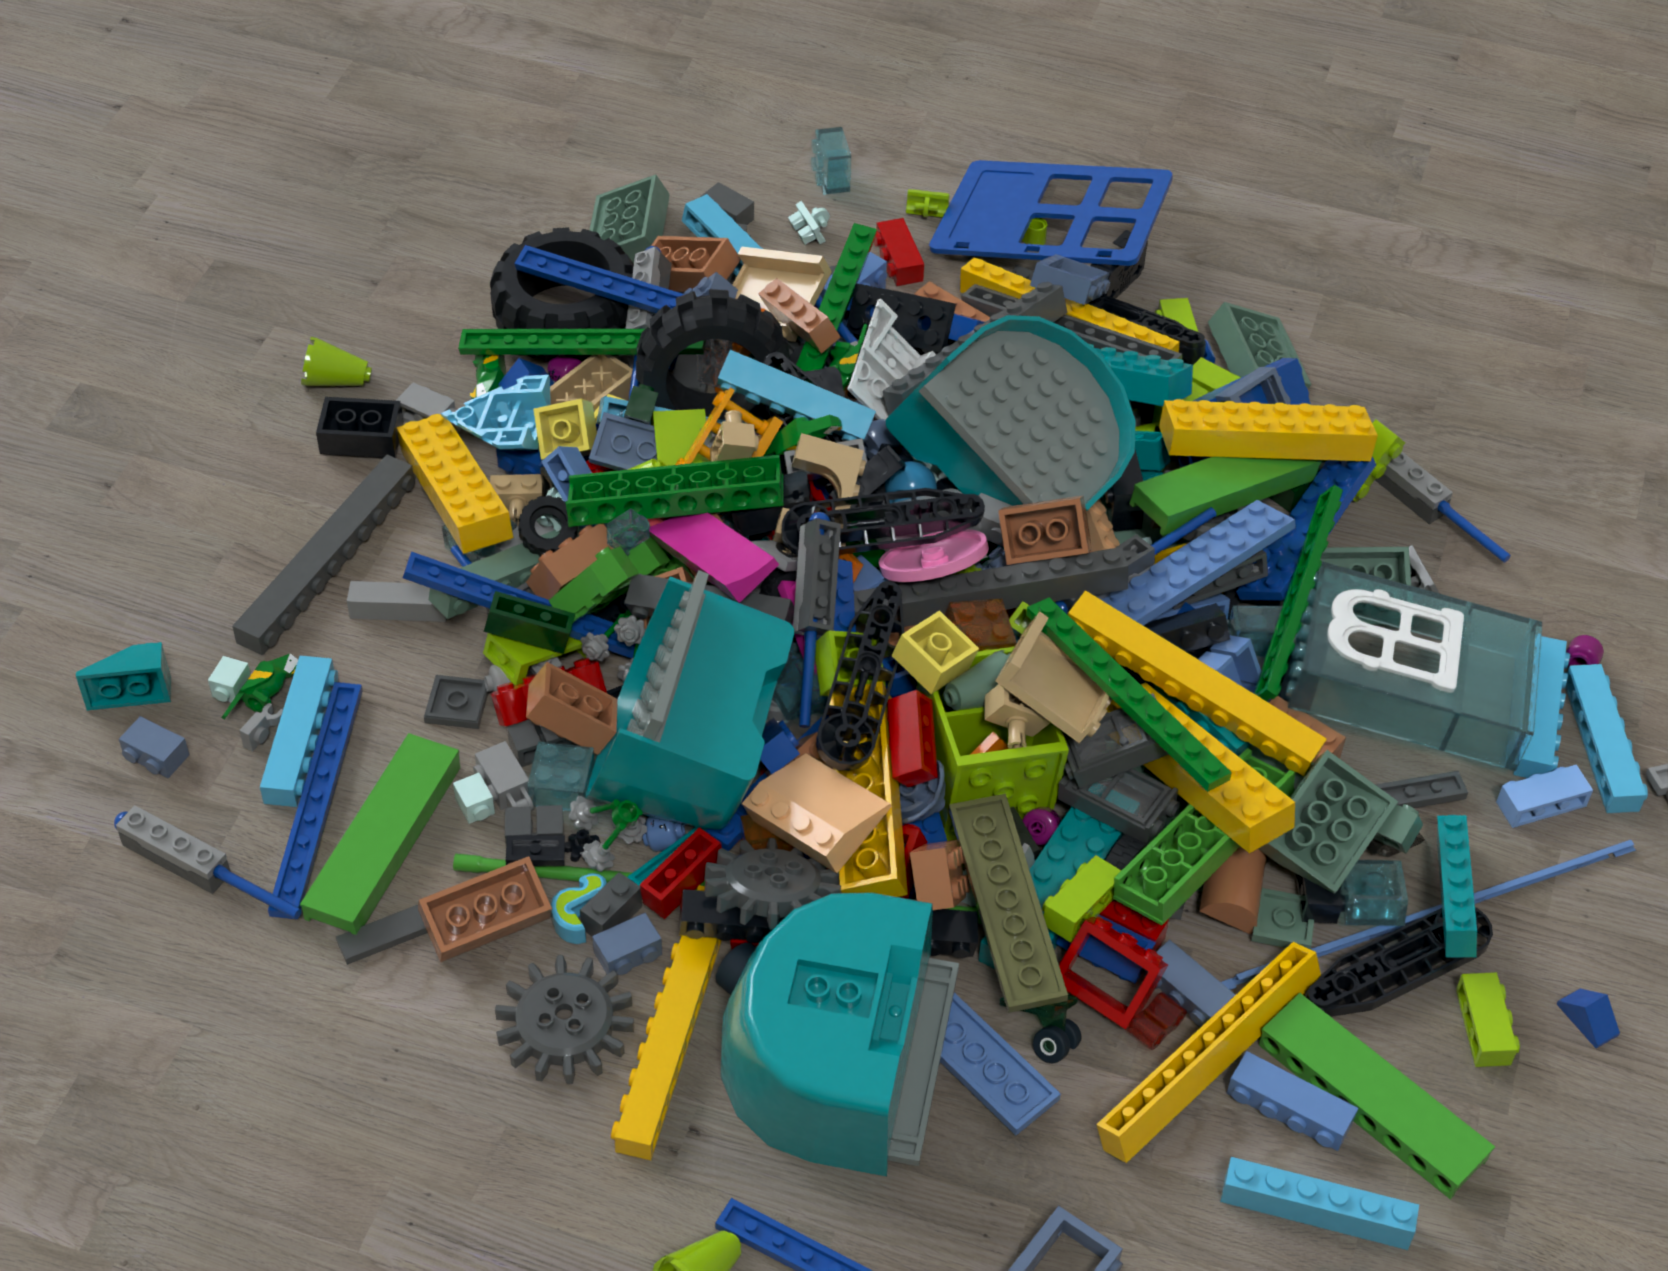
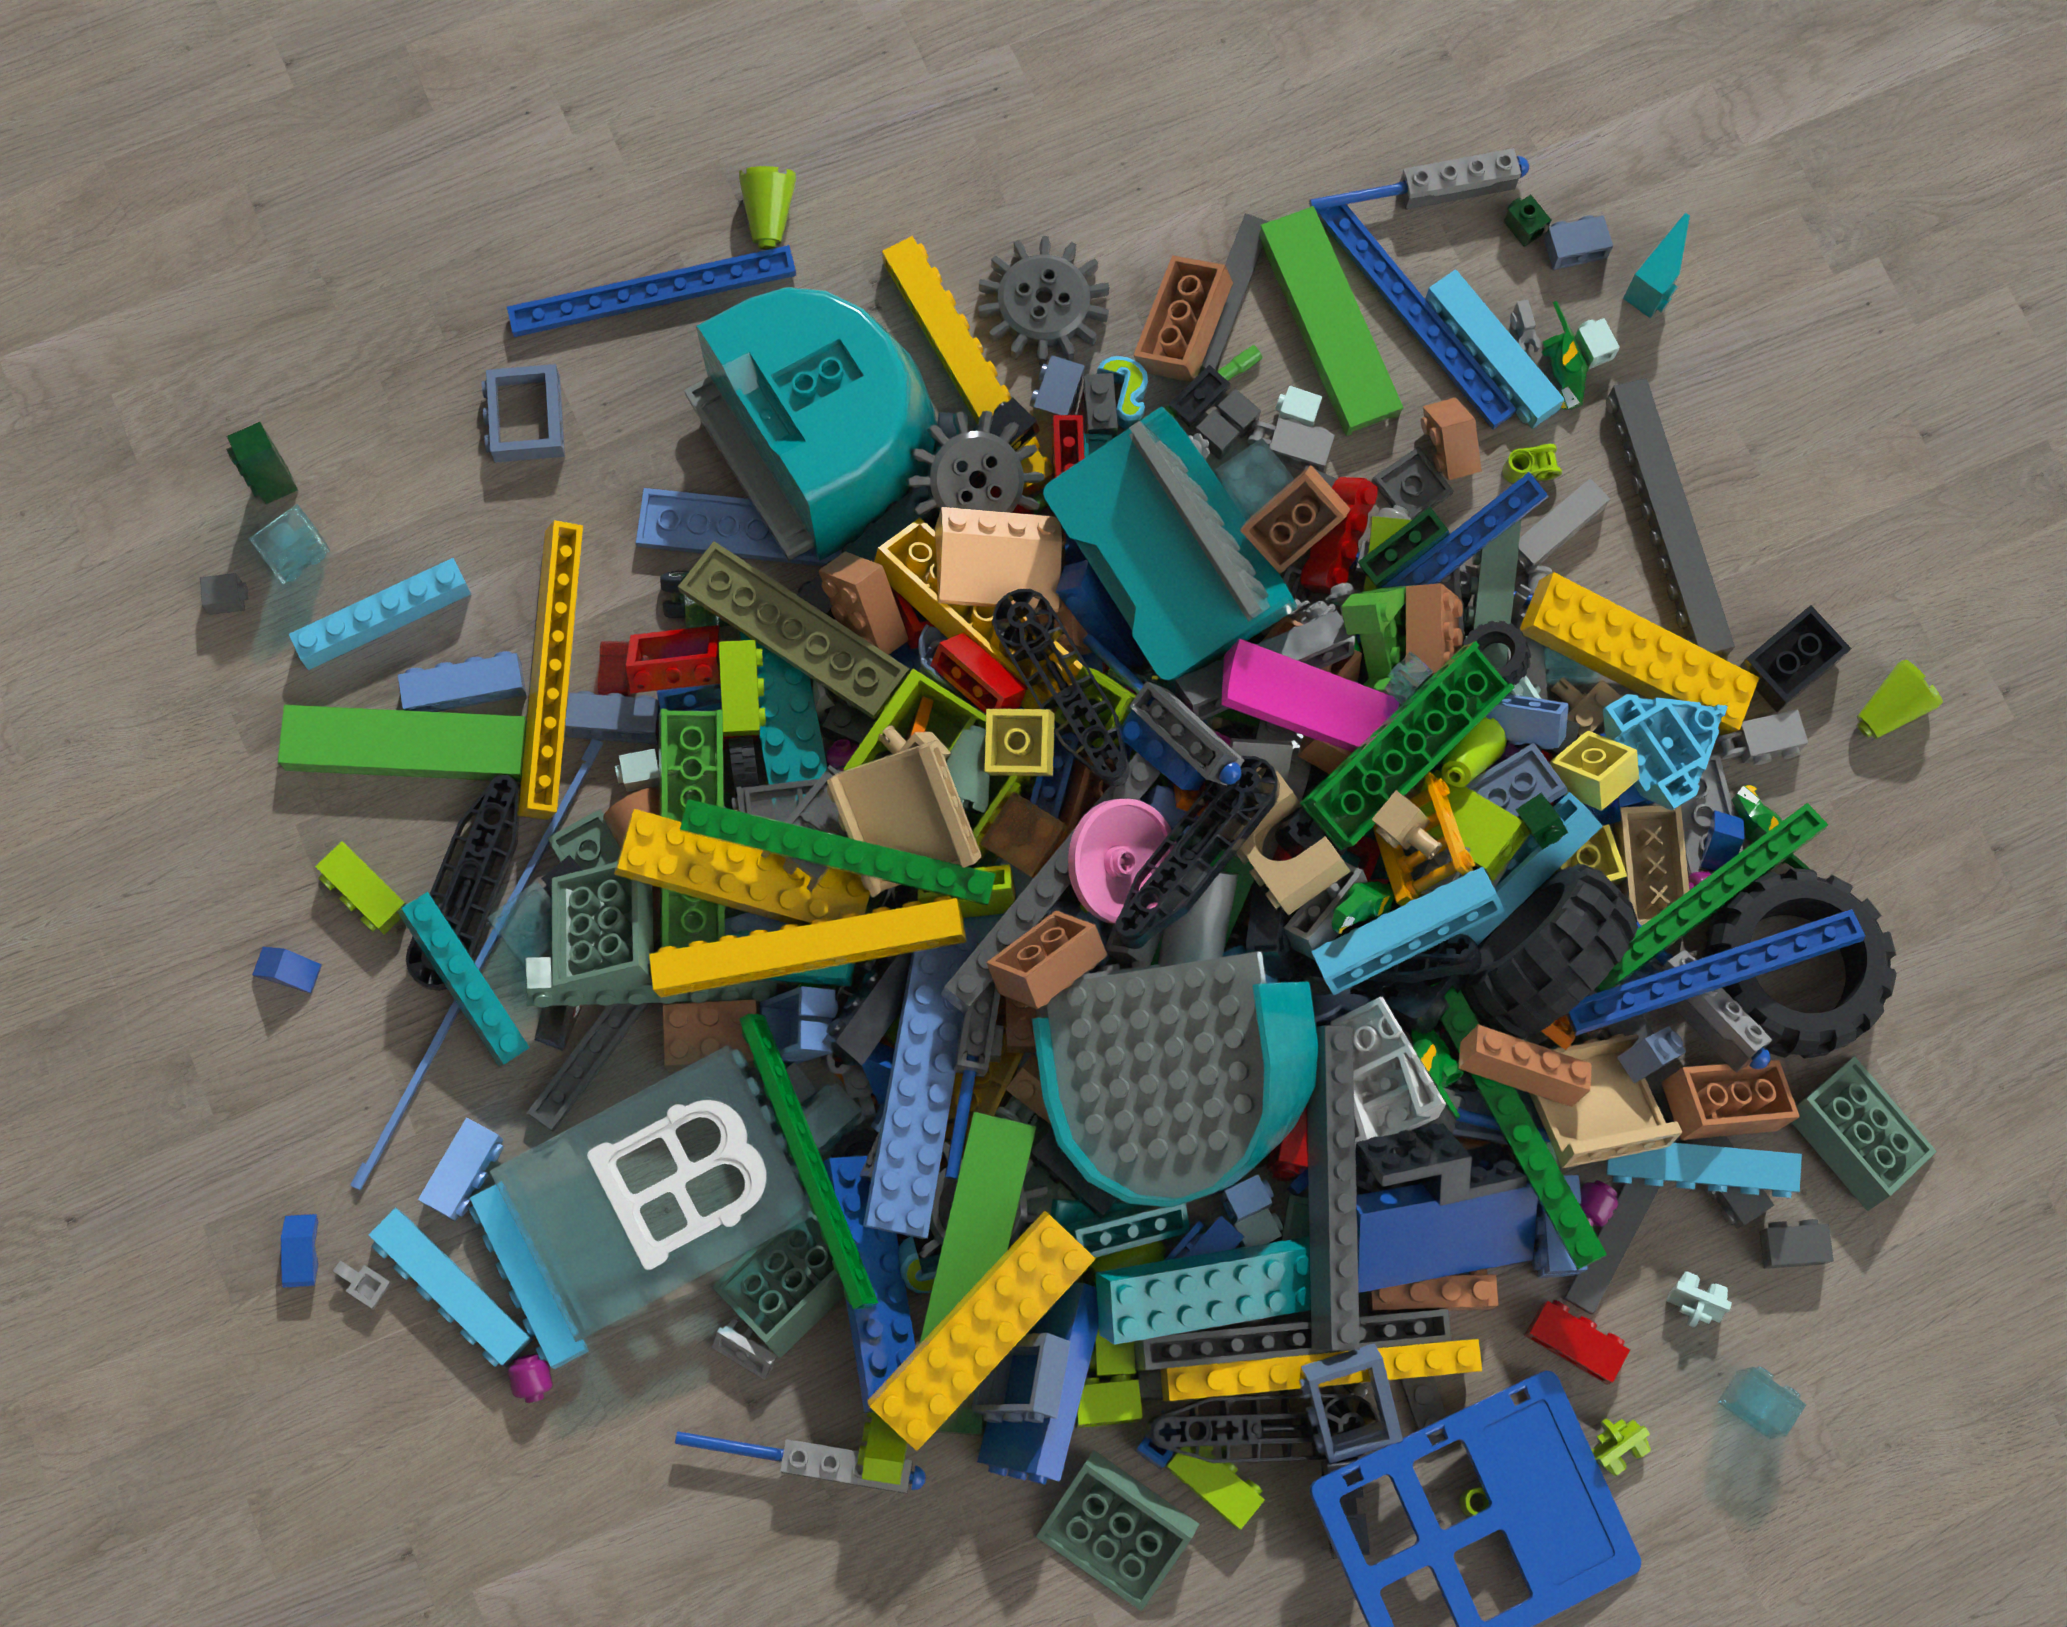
camera: 135 degrees right, 25 degrees up
(166, 788) = (1527, 220): none -> dark green brick
(367, 648) = (1537, 460): none -> lime piece
(396, 693) = (1454, 436): none -> nougat brick
(1200, 938) = (638, 770): none -> light aqua brick

